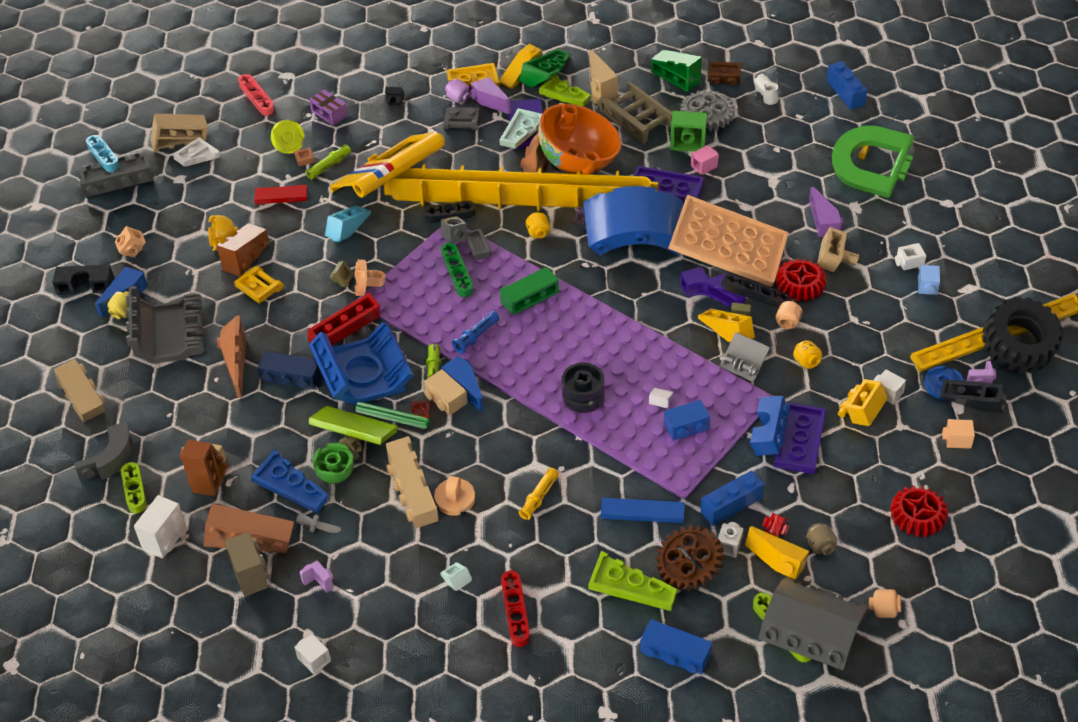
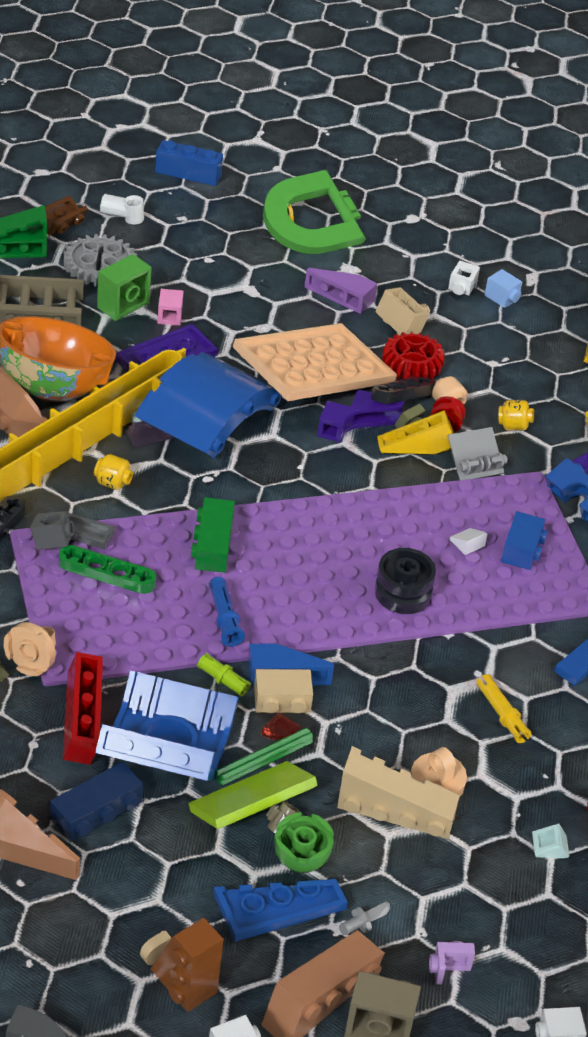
camera: 60 degrees left, 5 degrees down
(763, 324) = (453, 408): none -> red wheel

